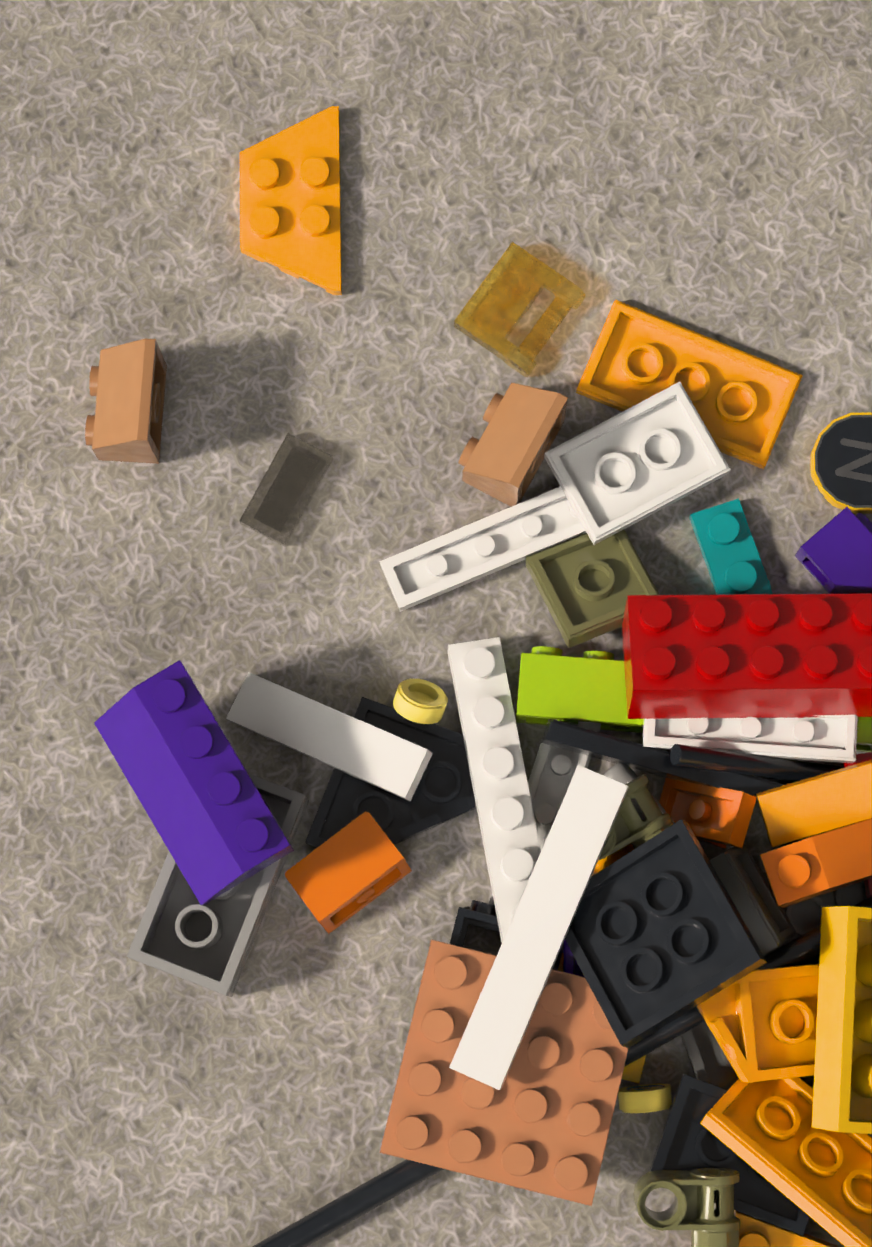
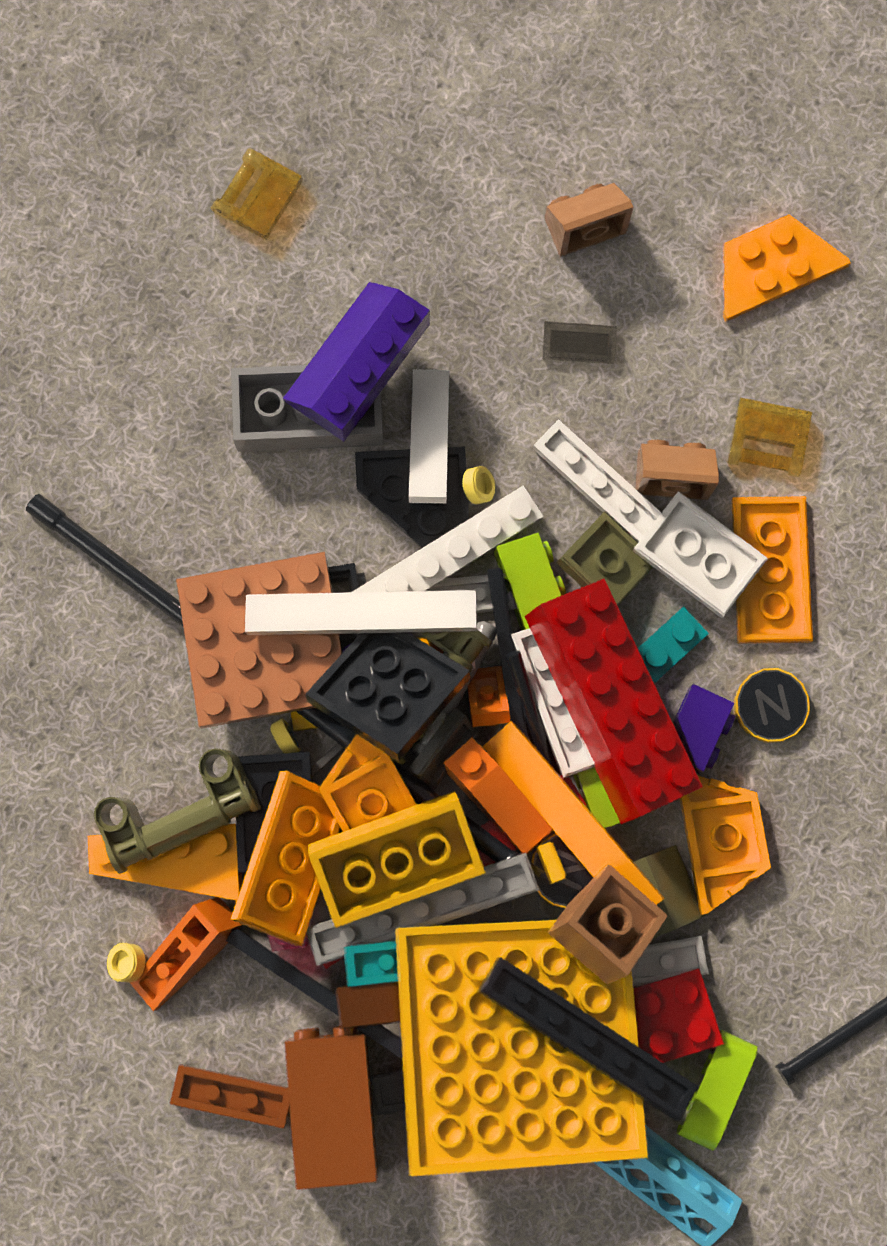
camera: 60 degrees right, 0 degrees up
(347, 872) = (346, 487): orange panel -> none

